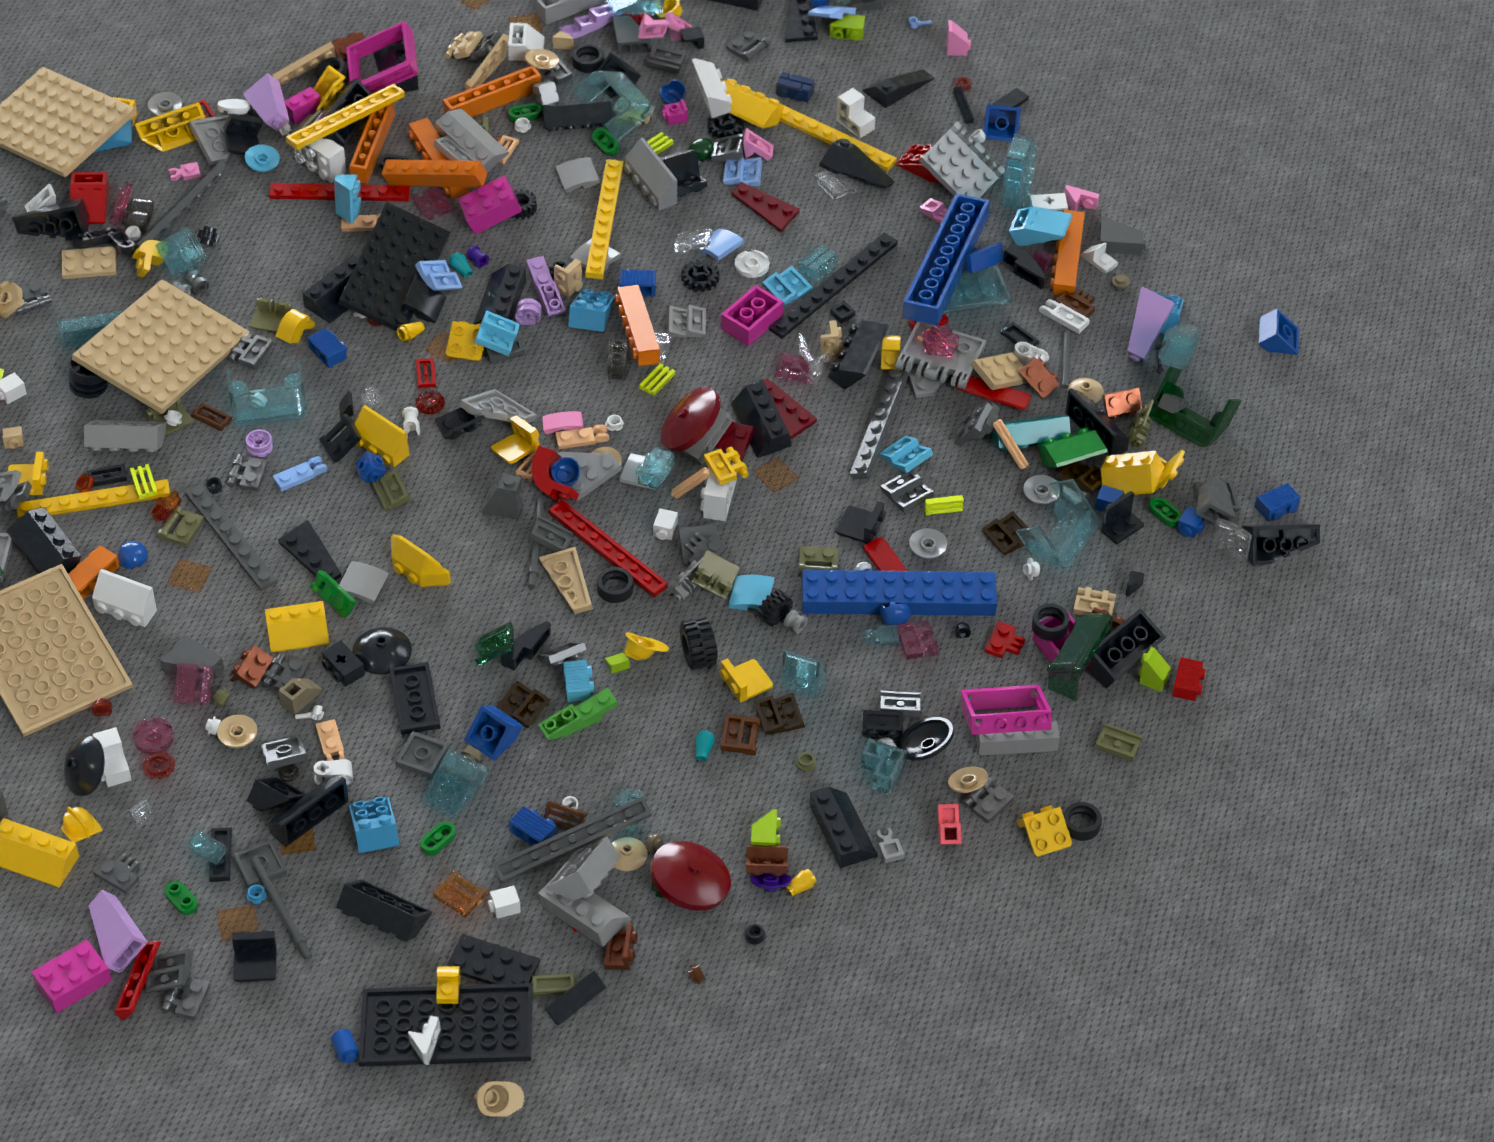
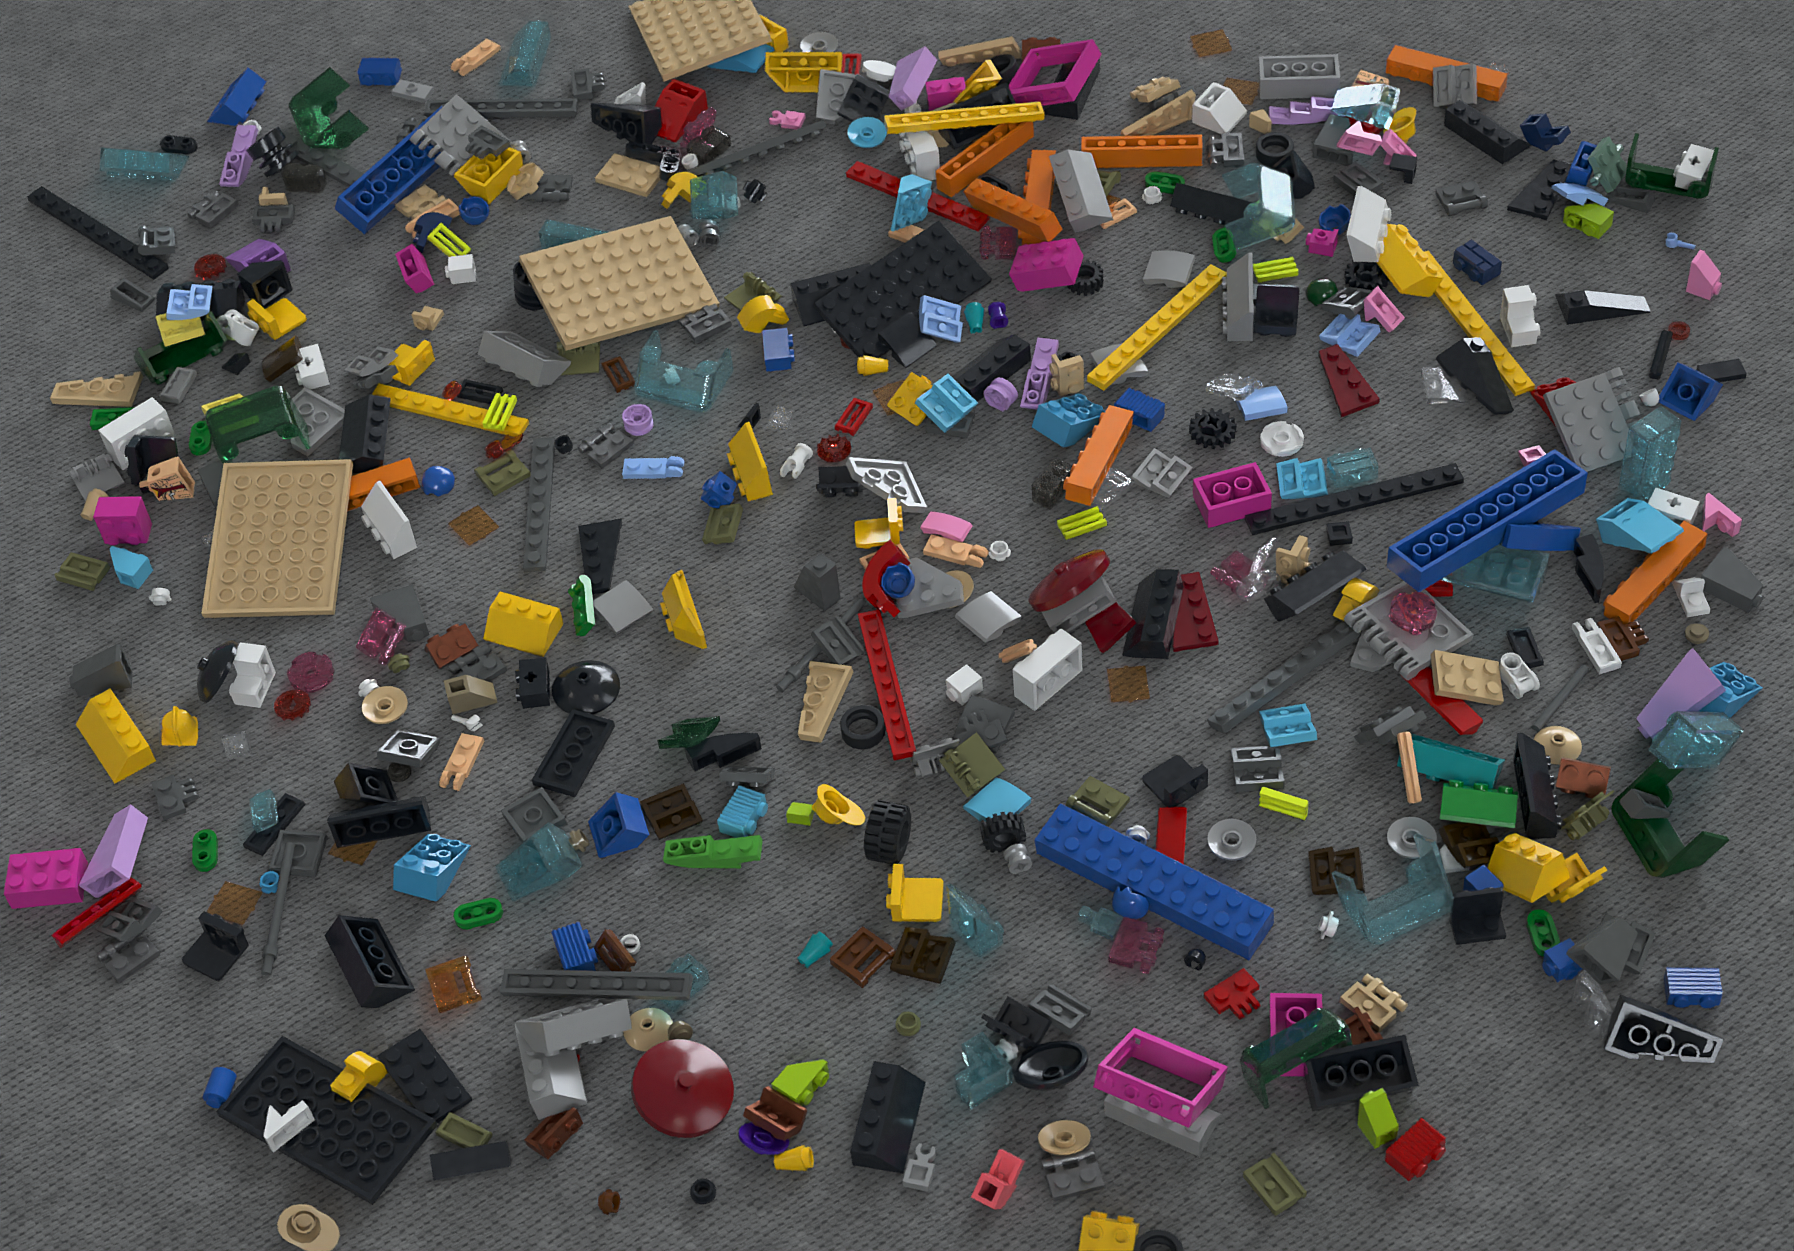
camera: 40 degrees right, 0 degrees up
(102, 707) = (288, 621): clear red tile -> none
(173, 417) = (577, 359): white plate -> none
(333, 768) = (438, 793): white piece -> none
(344, 441) = (713, 448): black plate -> none
(451, 149) = (1051, 197): light grey plate -> none
(504, 902) = (484, 1016): white brick -> none
(542, 59) = (1218, 131): tan dish -> none
(545, 93) = (1194, 170): brick -> none
(655, 468) = (994, 618): clear light blue brick -> none
(722, 469) = (1049, 647): yellow plate -> none
(1039, 377) = (1506, 703): copper bracket -> none
(1043, 259) = (1616, 569): clear pink tile -> none
(1047, 633) = (1290, 982): black tyre -> none
(1134, 582) = (1437, 999): black slope -> none

